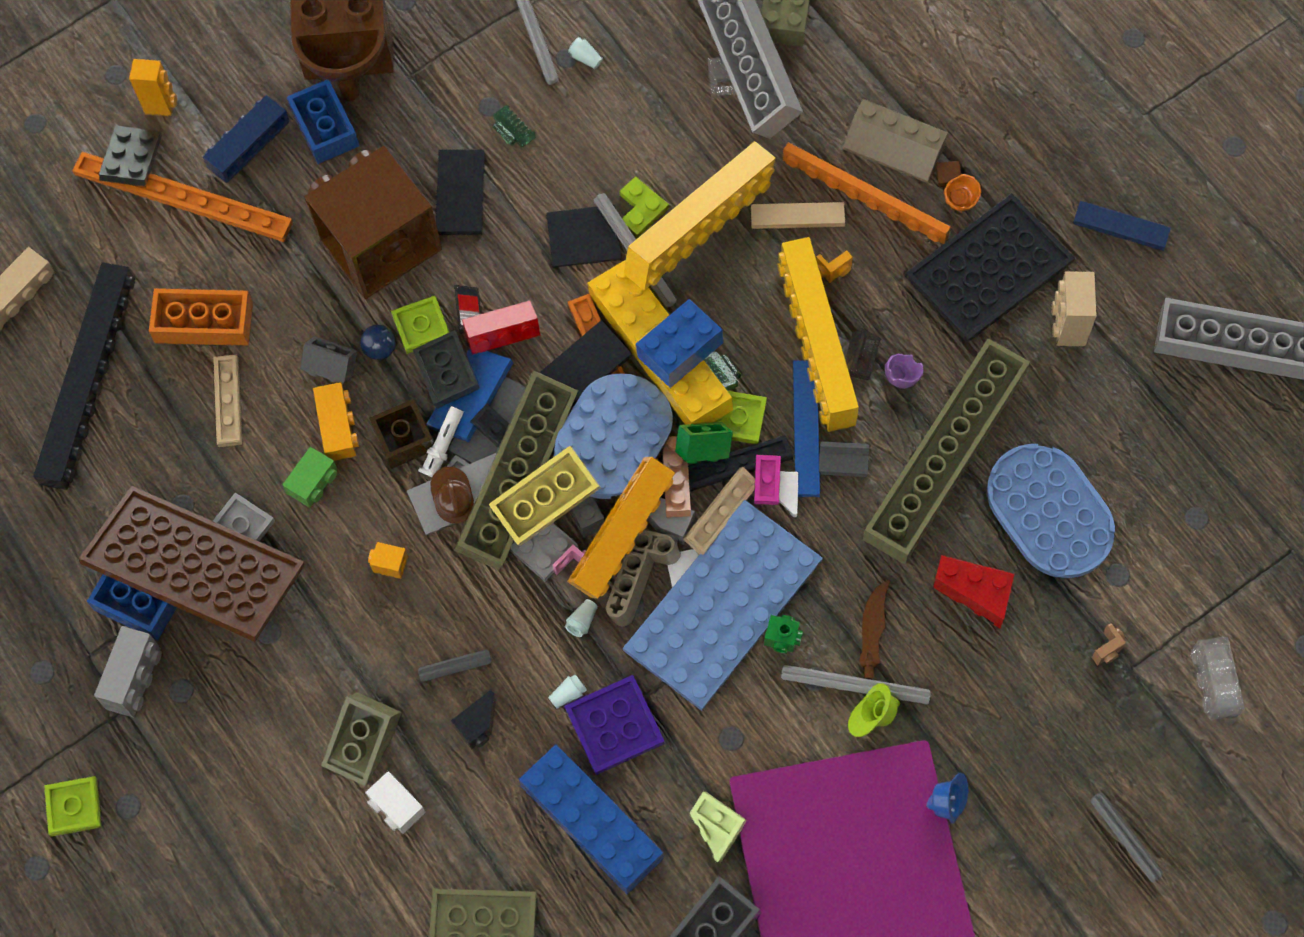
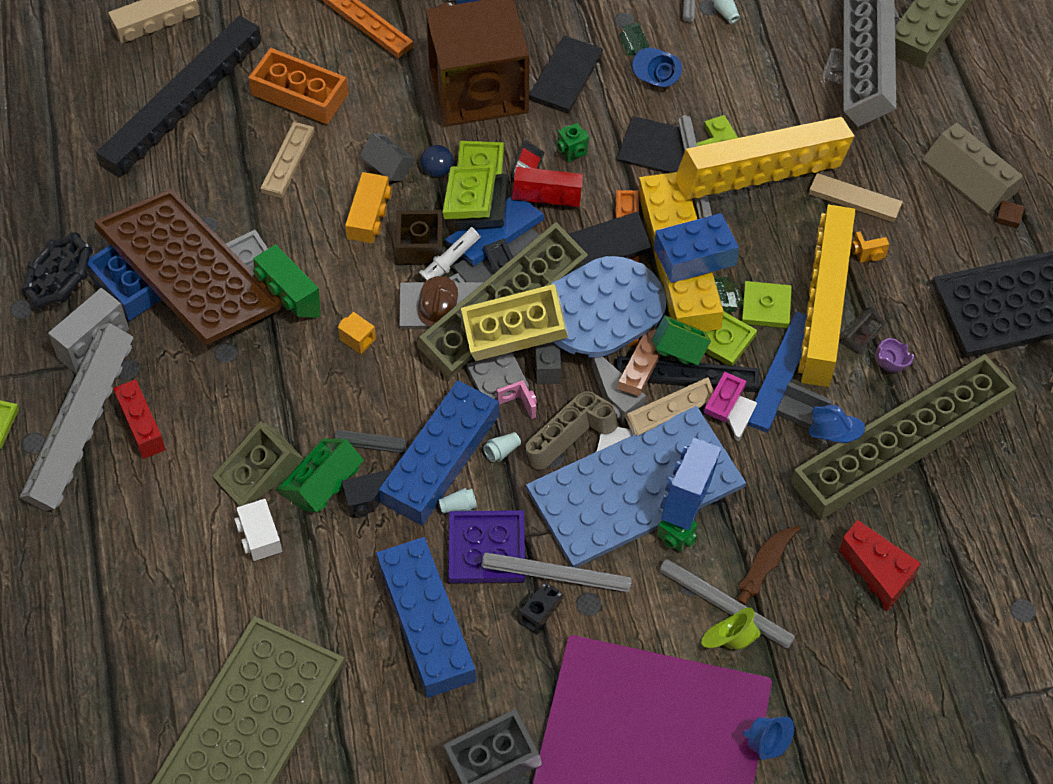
camera: 20 degrees right, 10 degrees down
(77, 628) = (57, 270): none -> black plate
(165, 767) = (77, 417): none -> light grey brick
(223, 740) = (139, 419): none -> red brick
(299, 539) = (287, 282): none -> green slope
(310, 477) = (323, 241): bright green brick -> none
(424, 720) = (321, 474): none -> green slope
(430, 367) = (469, 192): none -> lime plate
(502, 267) = (573, 142): none -> green brick
(527, 650) = (439, 452): none -> blue brick
(549, 151) = (657, 67): none -> blue piece
(621, 527) = (571, 379): light orange brick -> none
(690, 723) = (556, 572): none -> light grey axle
(691, 763) = (540, 608): none -> black leg
(717, 824) = (538, 670): yellowish green wing -> none
(762, 364) = (766, 304): none -> lime plate
(778, 588) = (690, 483): none -> brick
(871, 196) = (927, 202): orange plate -> none
(882, 468) = (834, 425): none -> blue piece
(962, 192) = (1015, 231): orange hair -> none
(1050, 511) = (981, 528): medium blue plate -> none
(1110, 650) = (986, 670): medium nougat bracket -> none

